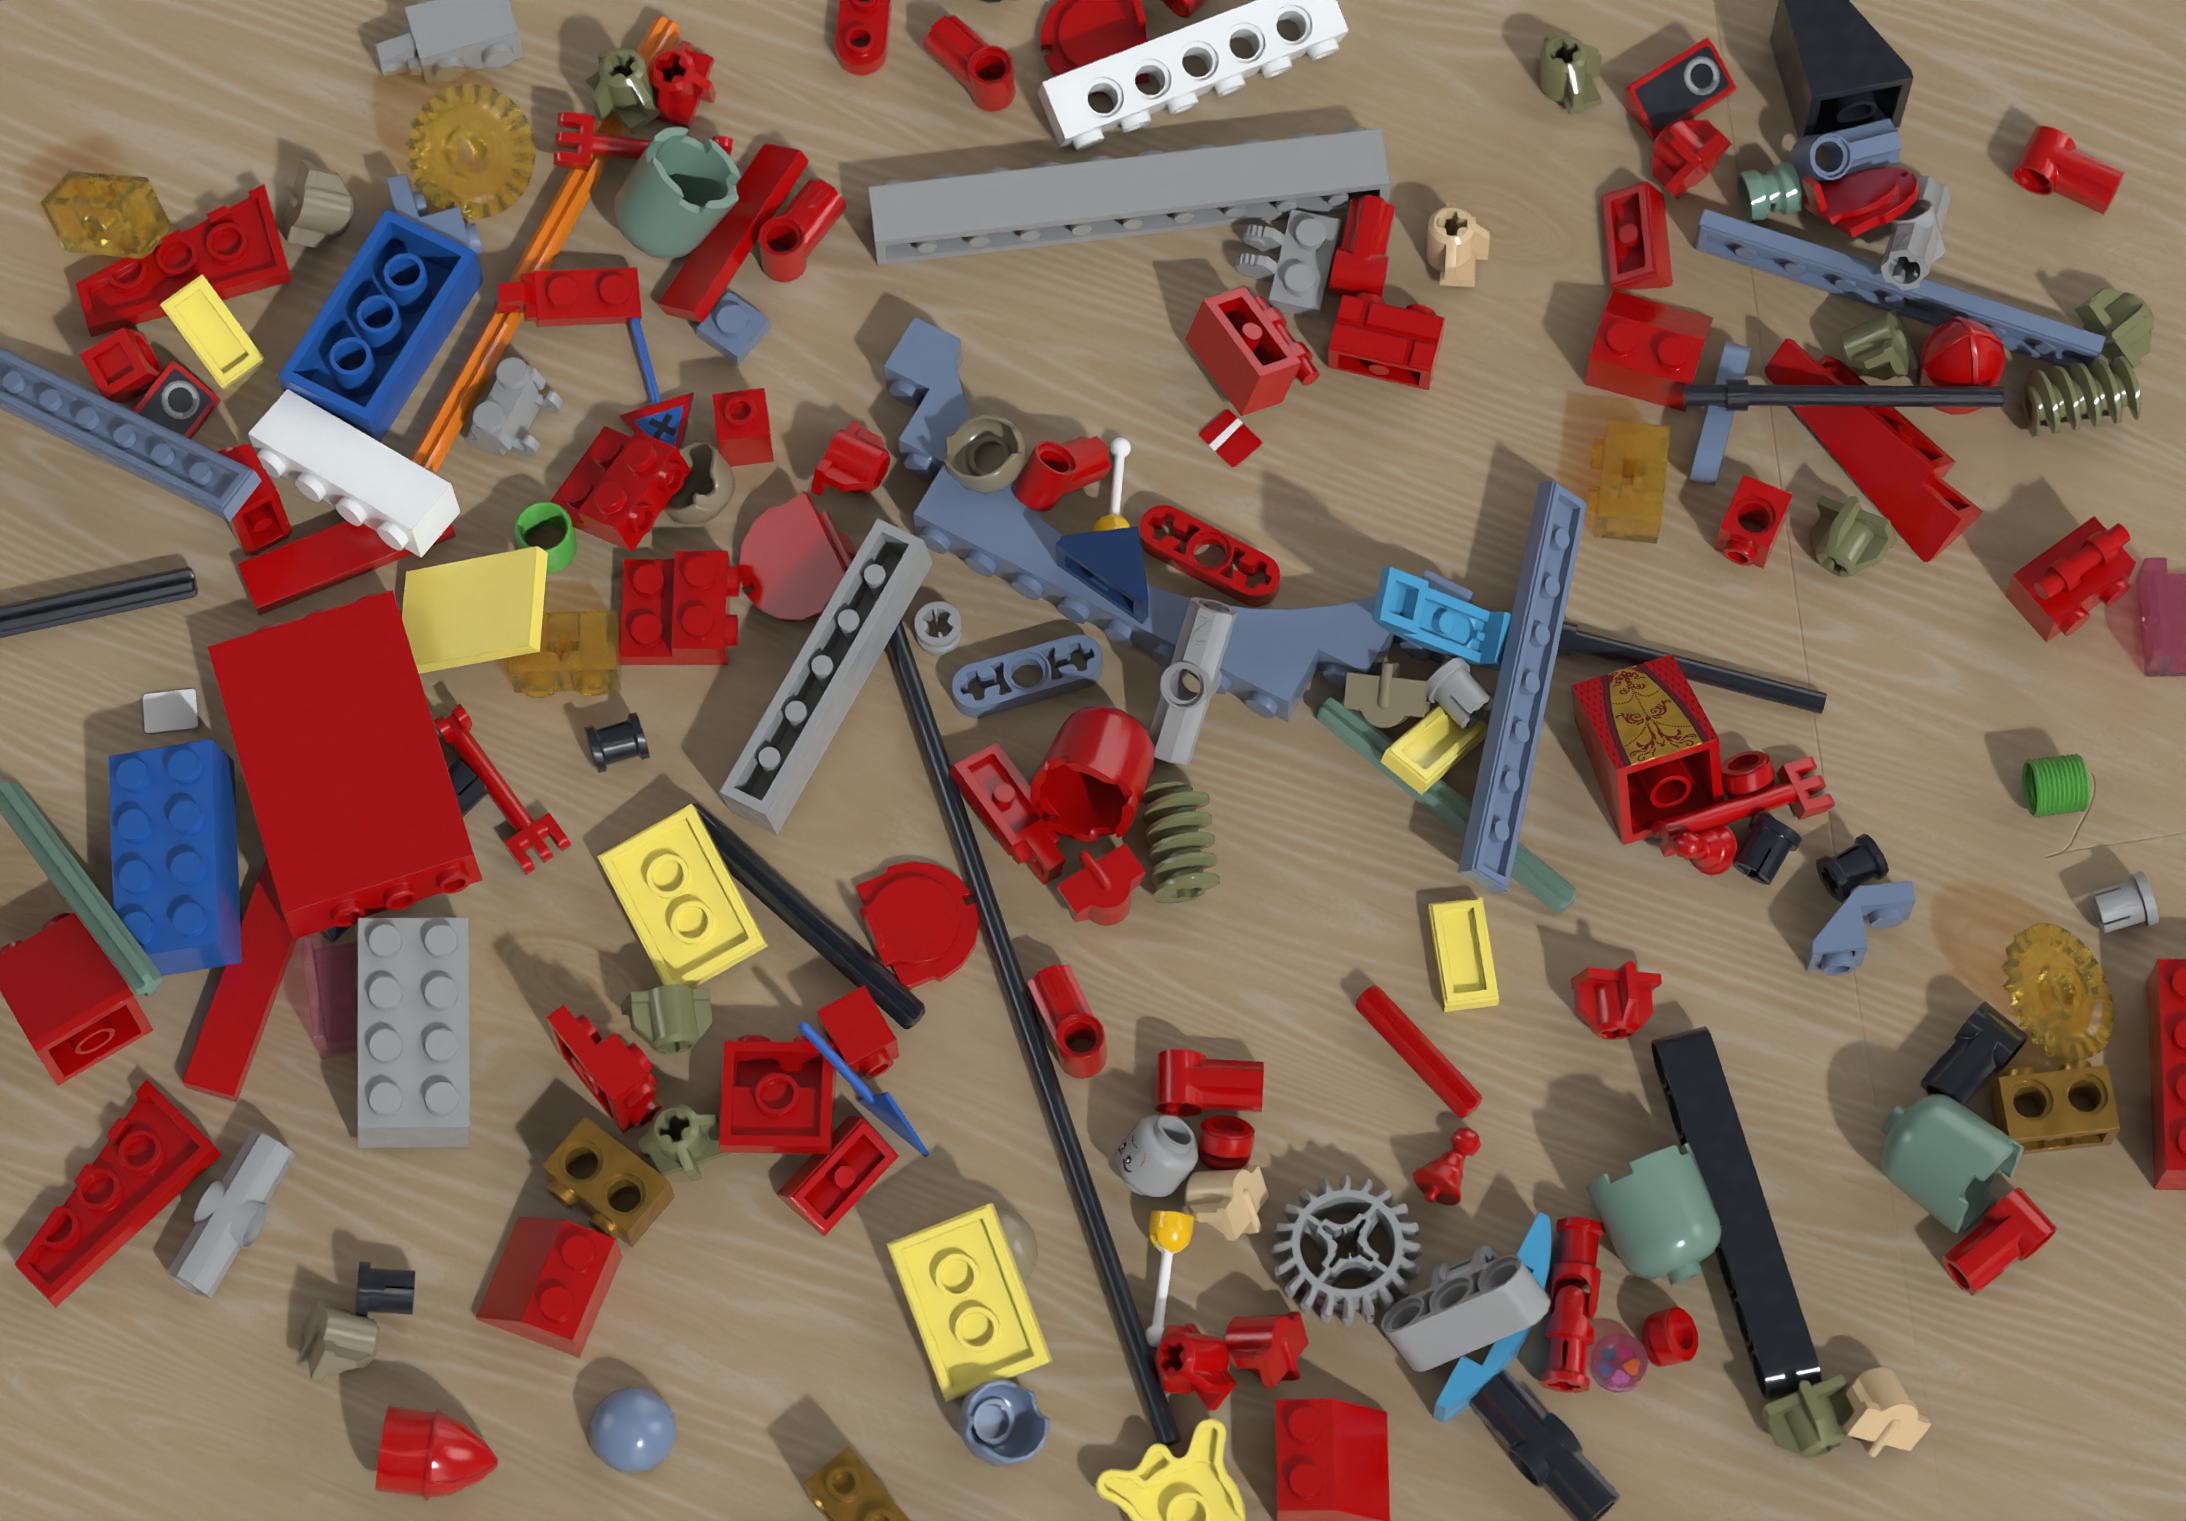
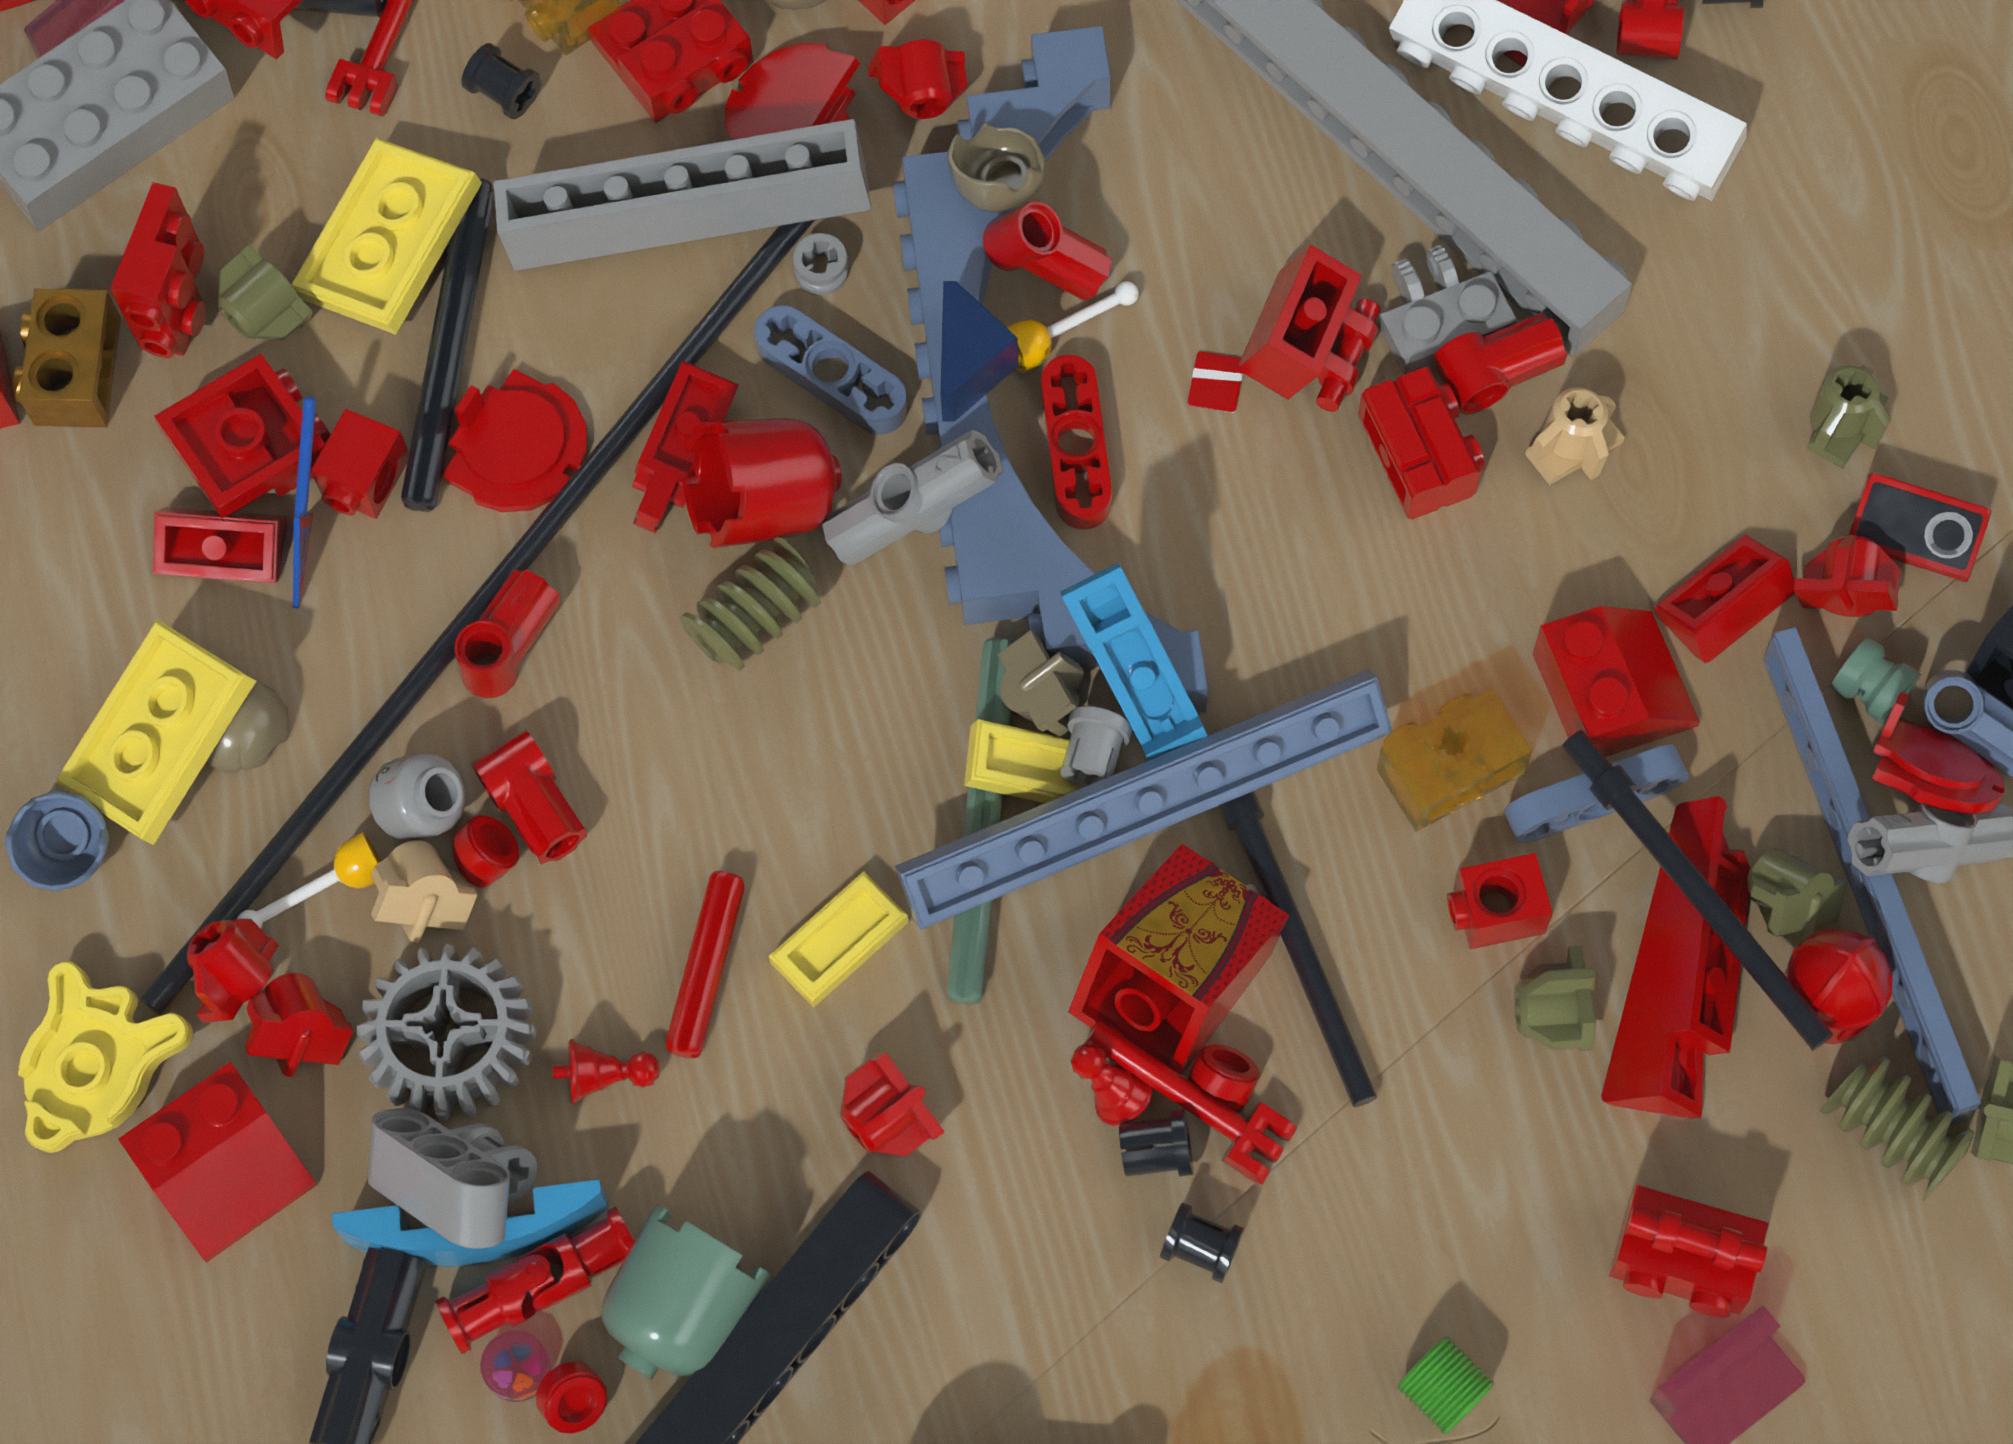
camera: 55 degrees right, 0 degrees up
(681, 1141) = (147, 386): olive piece -> none
(1103, 886) = (656, 569): red piece -> none
(1843, 939) = (1118, 1281): sand blue slope -> none

